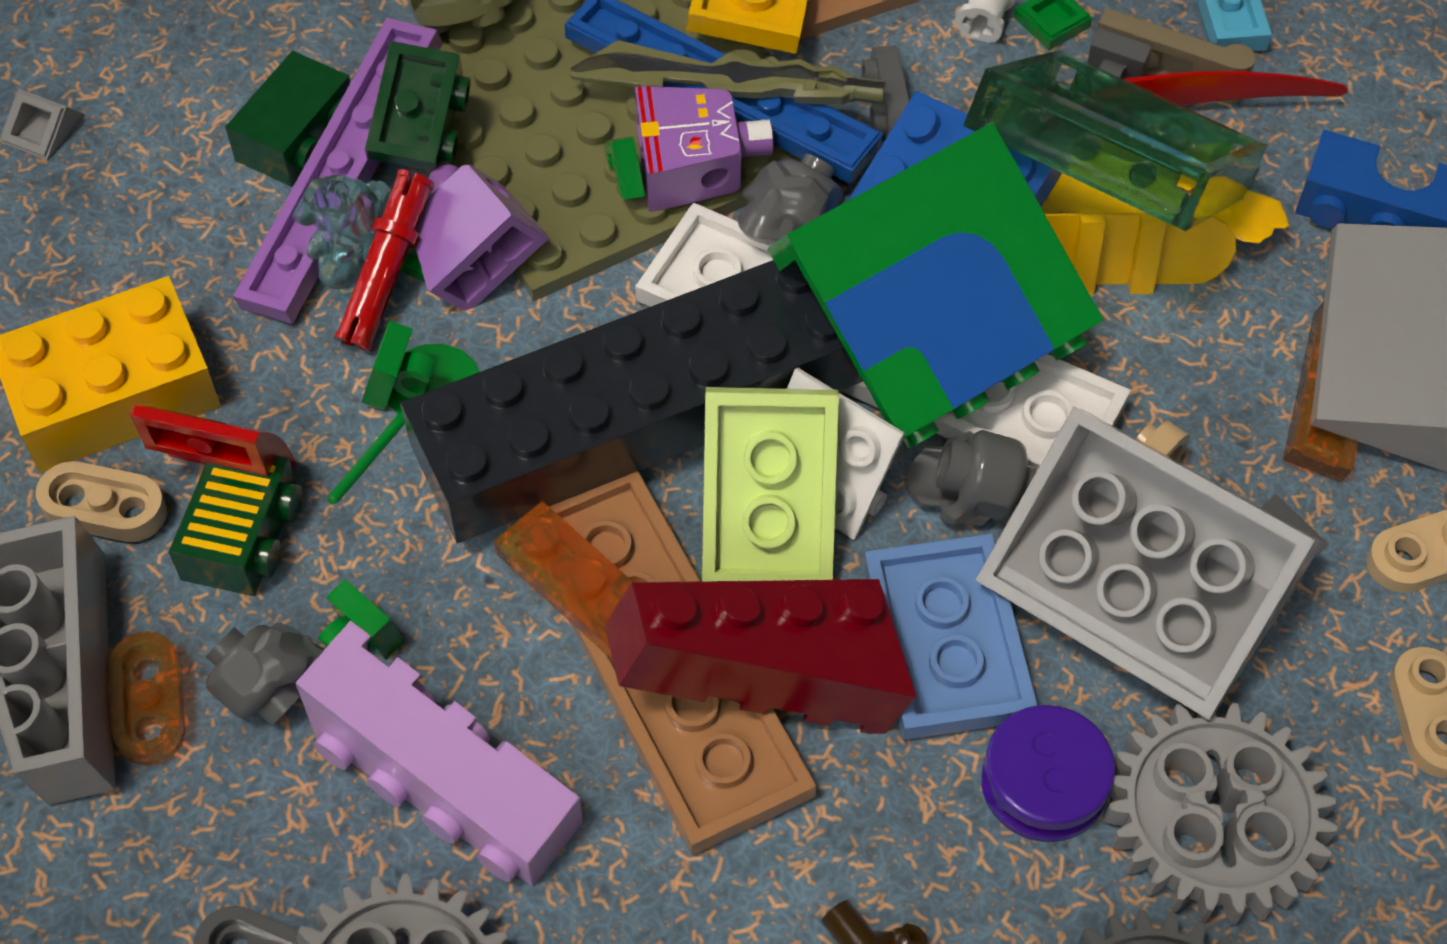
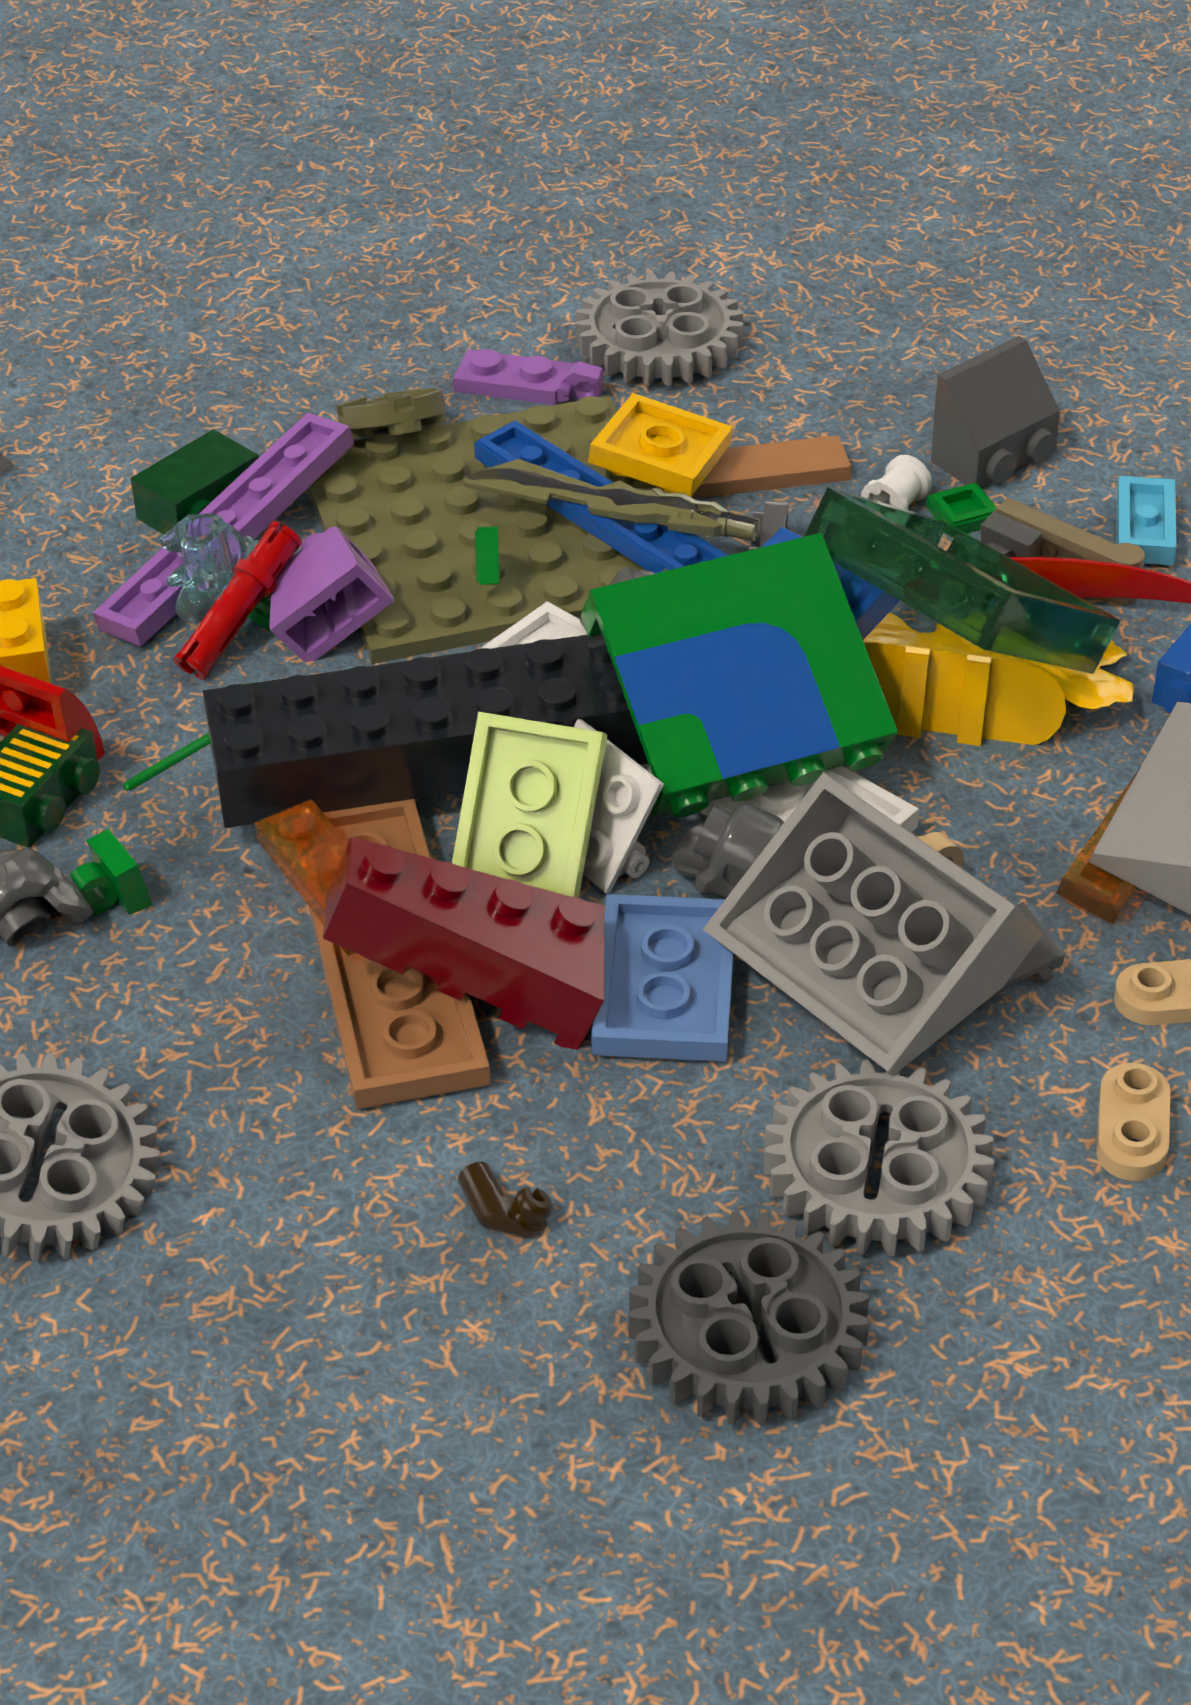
camera: 15 degrees right, 15 degrees down
(395, 368) = (214, 672): green tile -> none
(418, 107) = (309, 480): dark green bracket -> none
(435, 760) = (140, 979): lavender wedge -> none
(693, 144) = (558, 548): medium lavender torso -> none
(1047, 773) = (717, 1097): dark purple head -> none

